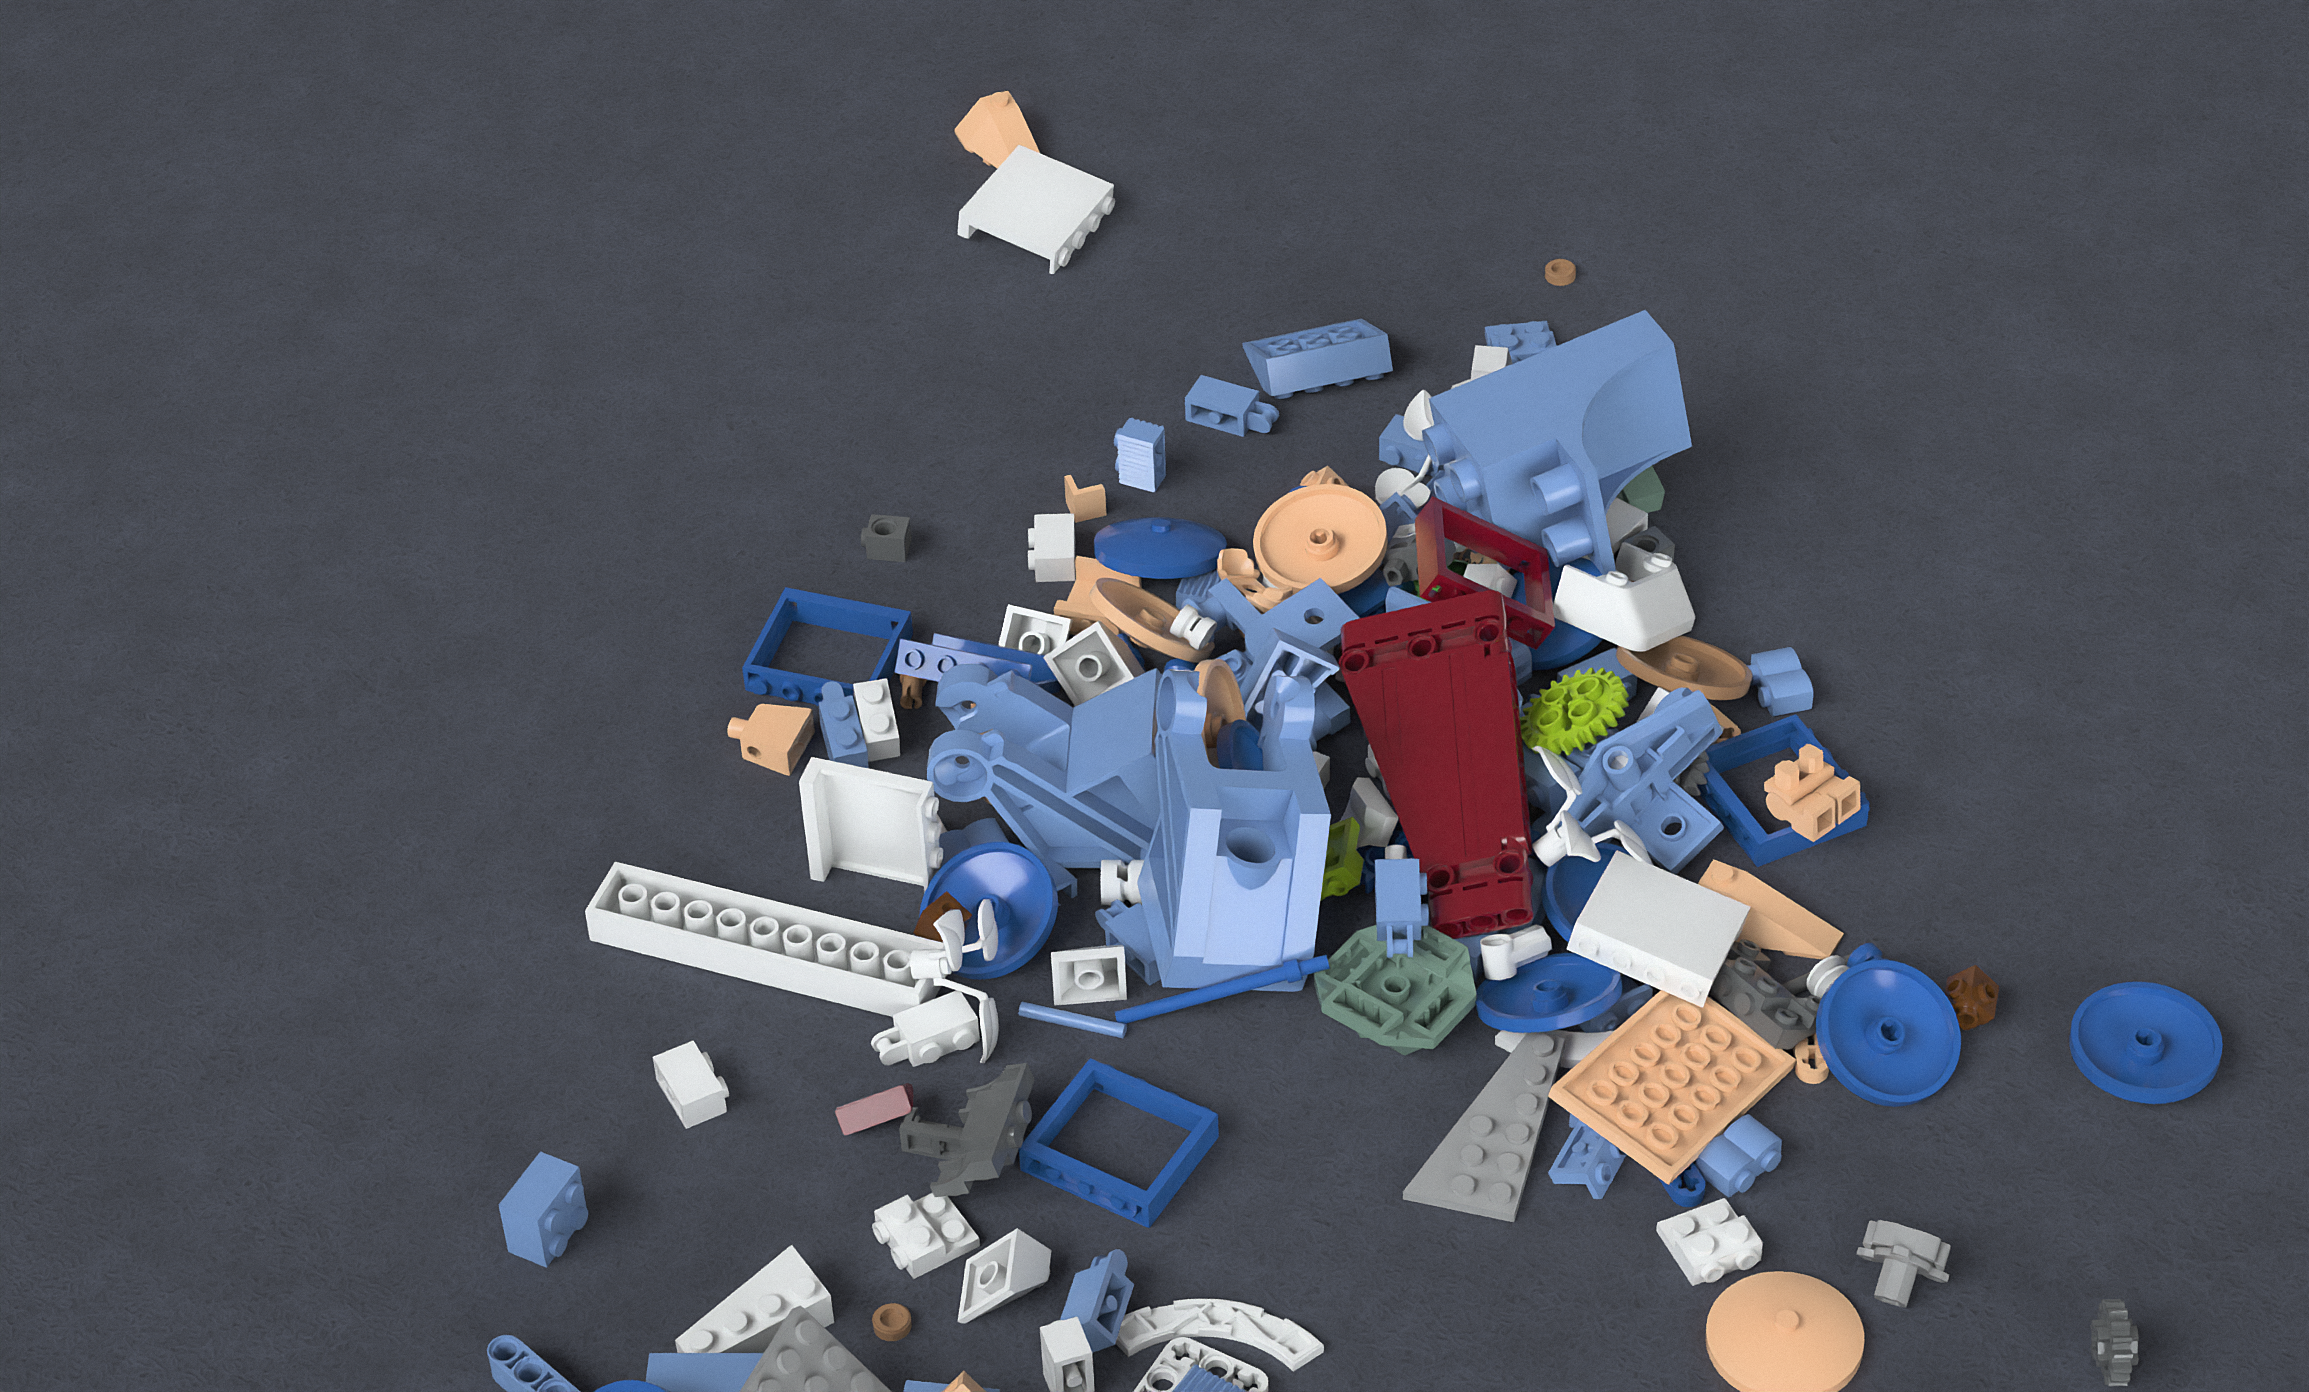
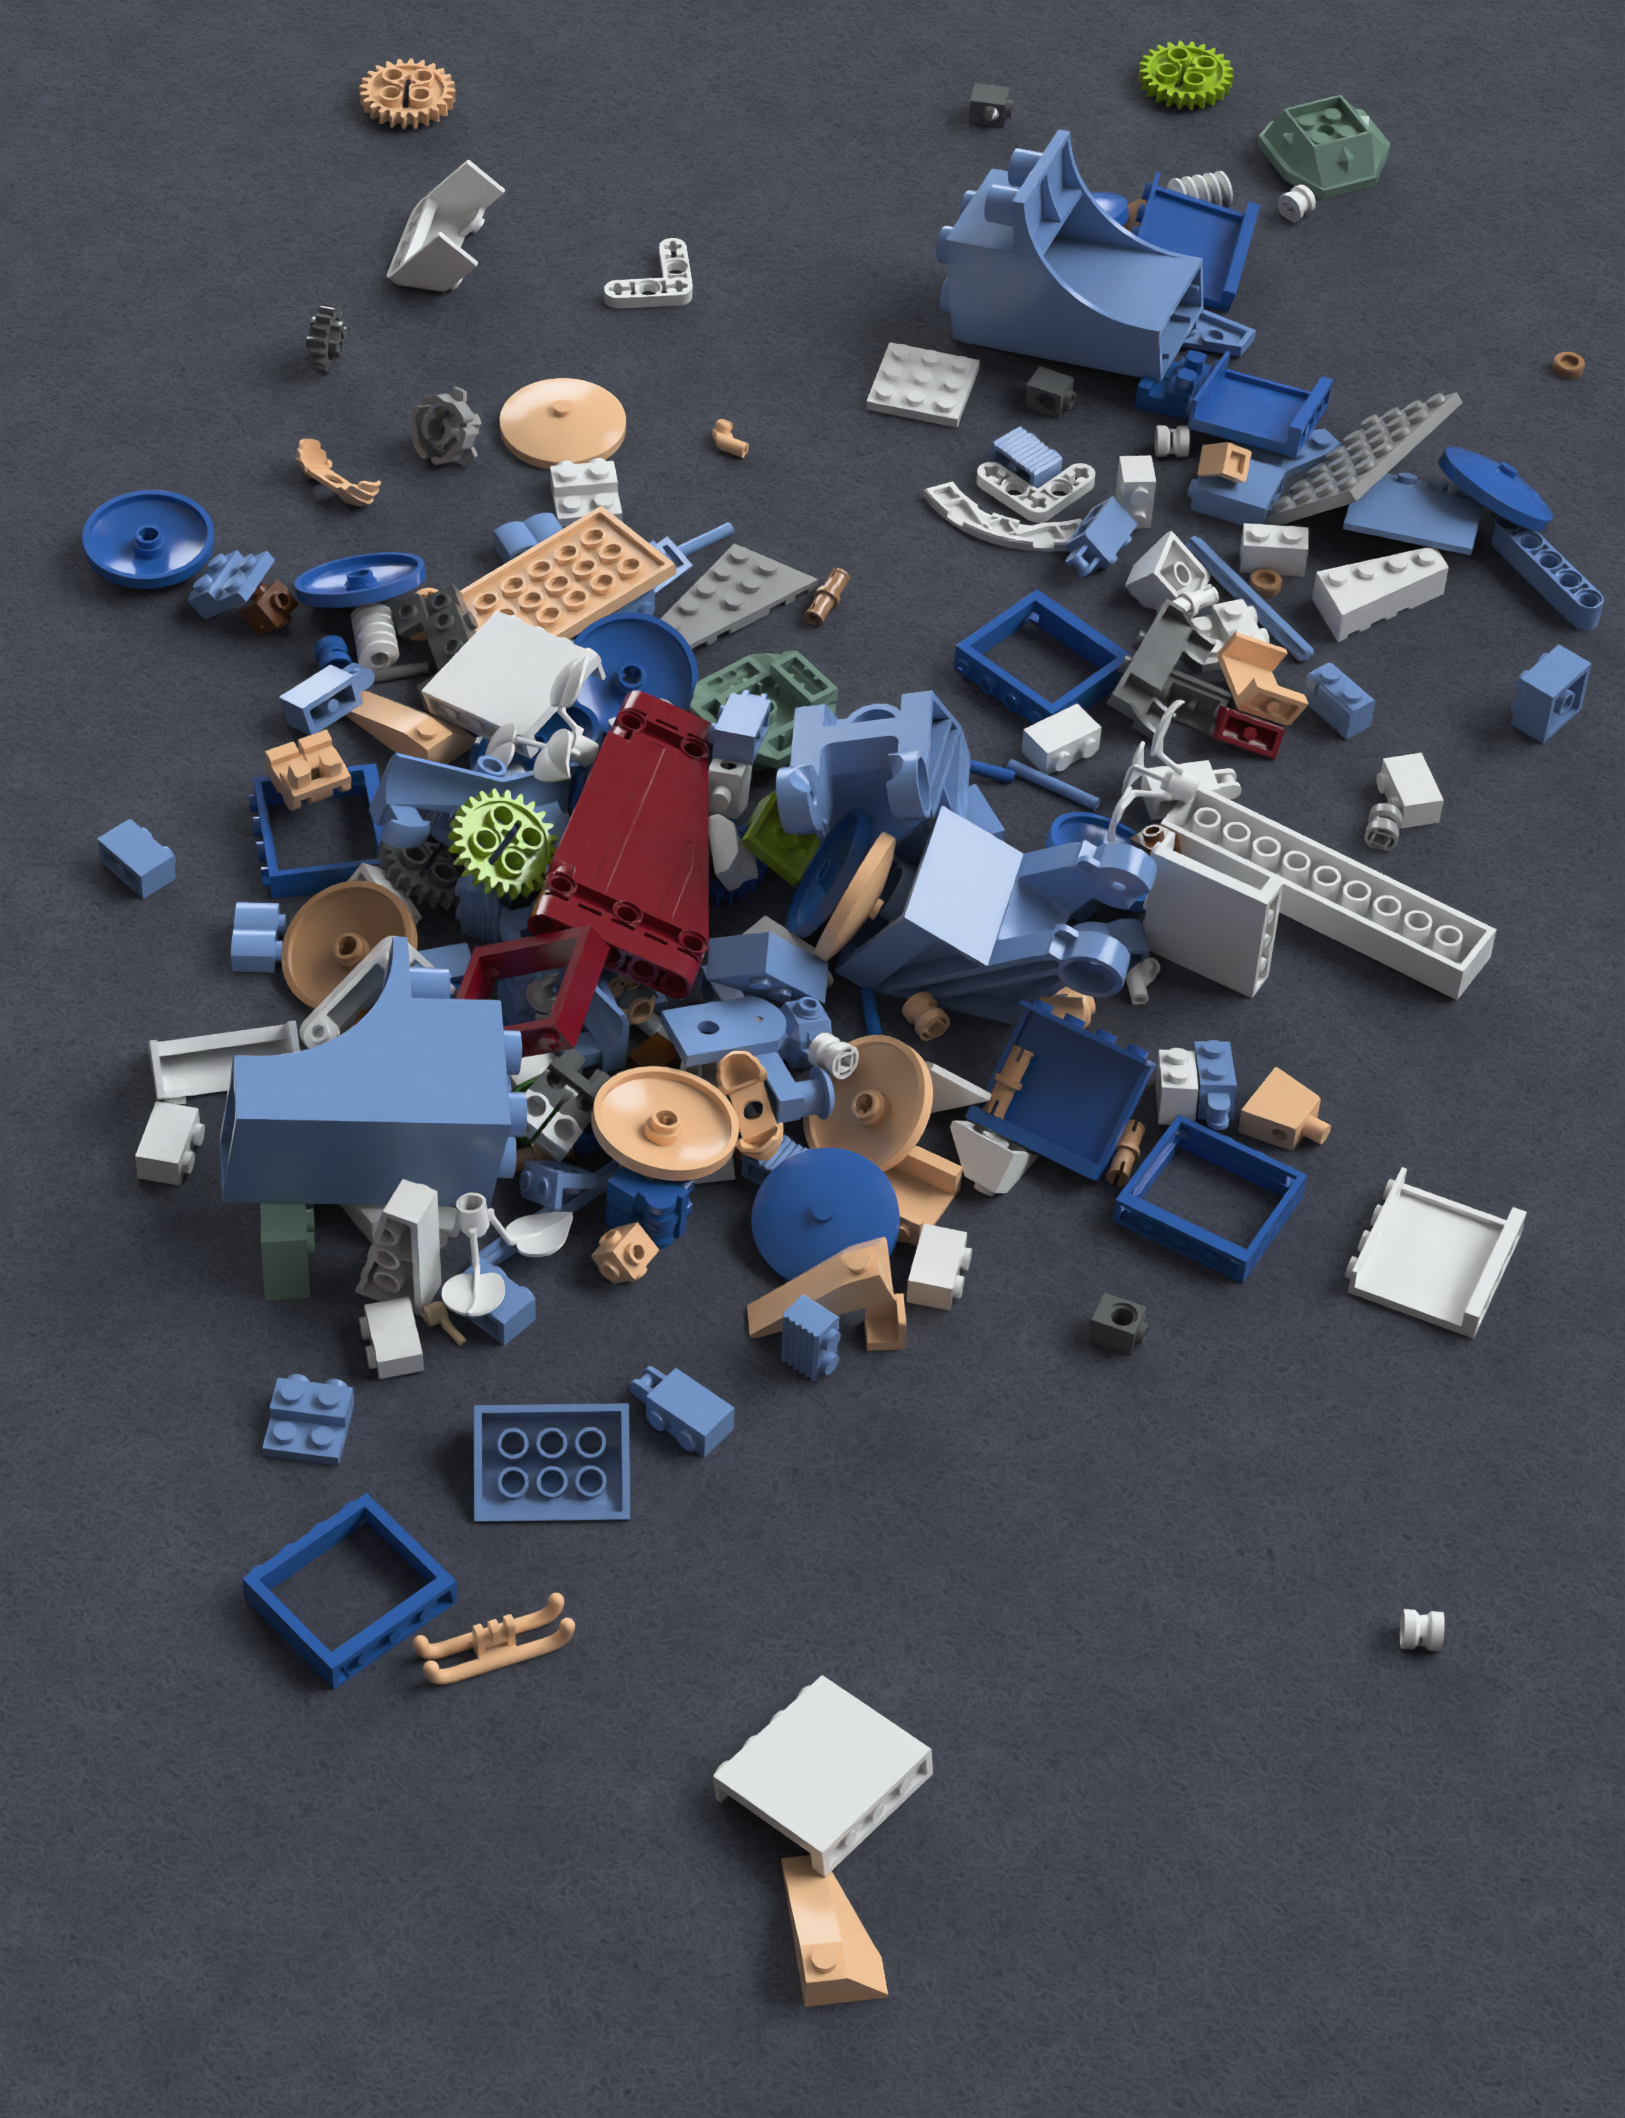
camera: 170 degrees left, 5 degrees up
(595, 386) = (1422, 1630): none -> white wheel
(616, 656) = (1433, 1257): none -> white panel
(715, 1036) = (1383, 826): none -> light grey wheel
(782, 1167) = (1338, 700): none -> medium blue brick
(872, 1154) = (1248, 671): none -> light nougat panel
(890, 1343) = (1274, 548): none -> white brick
(908, 1292) = (1241, 590): none -> medium blue axle
(973, 1237) = (1196, 600): none -> white pin
(1035, 659) = (1008, 1081): none -> medium nougat pin
(1068, 1051) = (1061, 739): none -> white brick
(1089, 975) = (1030, 790): white slope -> none
(1129, 486) = (841, 1284): none -> light nougat wedge
(1310, 243) = (495, 1644): none -> light nougat piece
(1368, 263) = (381, 1635): none -> blue window
(1384, 1171) = (827, 597): none -> medium nougat pin
(1556, 1217) = (706, 539): none -> medium blue bar
(1560, 272) = (206, 1529): medium nougat tile -> none
(1583, 1360) = (725, 441): none -> light nougat arm
(1750, 500) = (169, 1143): none -> white brick
(1781, 568) = (206, 1061): none -> white windscreen
(1854, 913) = (325, 697): none -> medium blue brick
(1935, 724) = (137, 858): none -> medium blue brick
(1968, 1174) = (314, 465): none -> light nougat piece
(2026, 1010) = (228, 582): none -> medium blue plate

